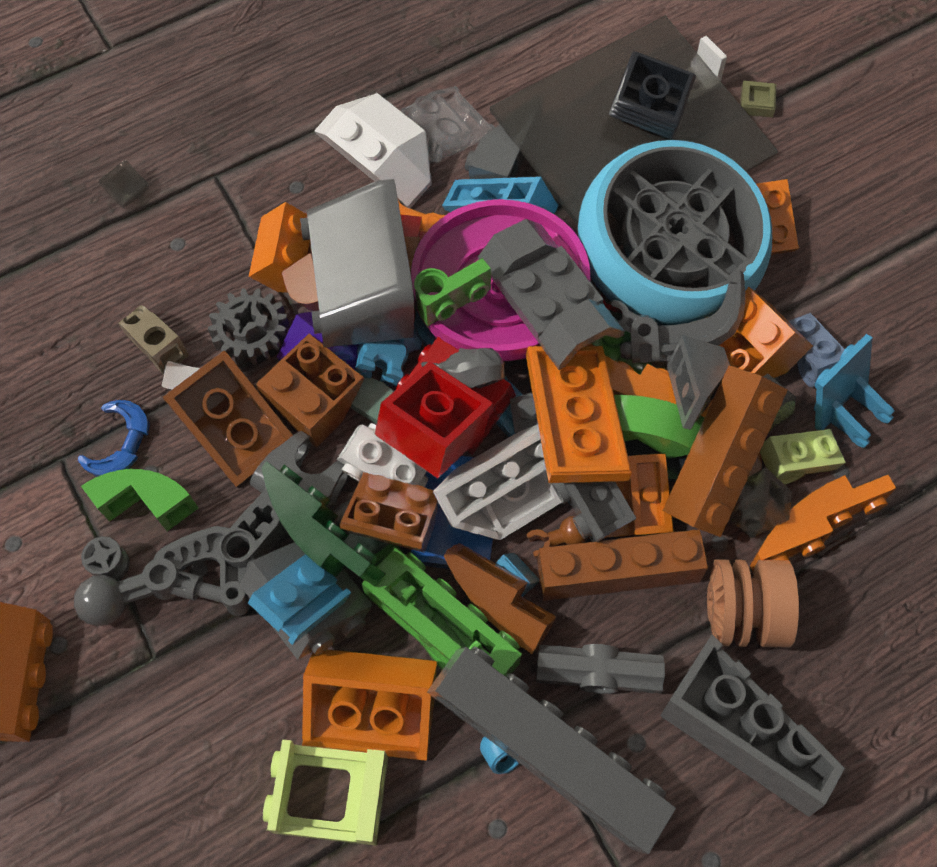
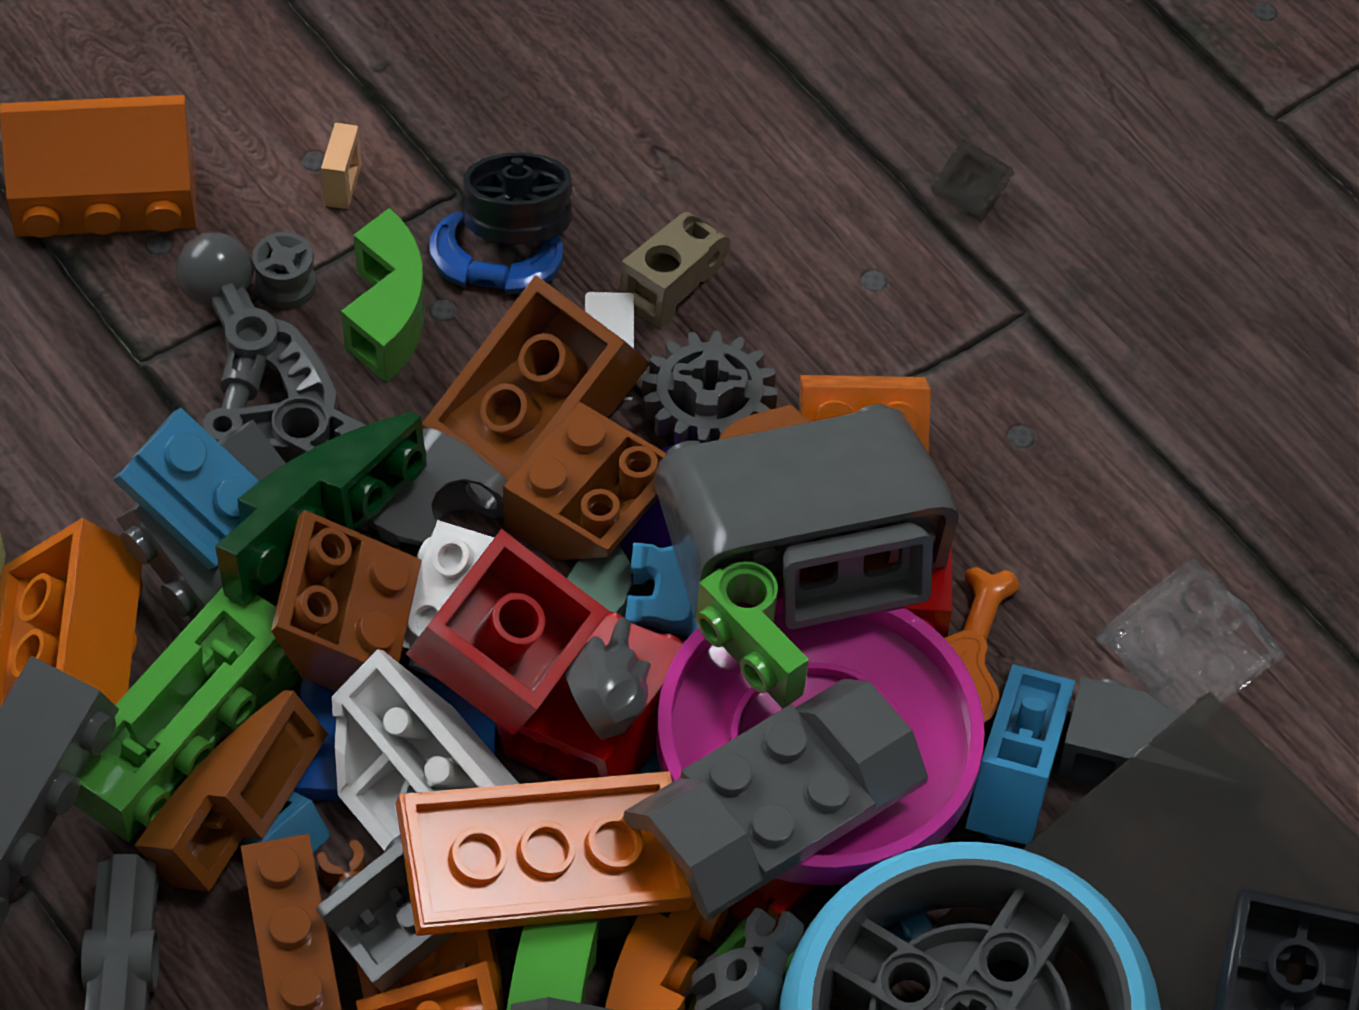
camera: 80 degrees right, 10 degrees down
(29, 520) = (341, 165): none -> light nougat tile
(76, 412) = (517, 198): none -> black wheel
(381, 144) = (1106, 538): white wedge -> none
(417, 233) = (851, 588): none -> dark grey piece

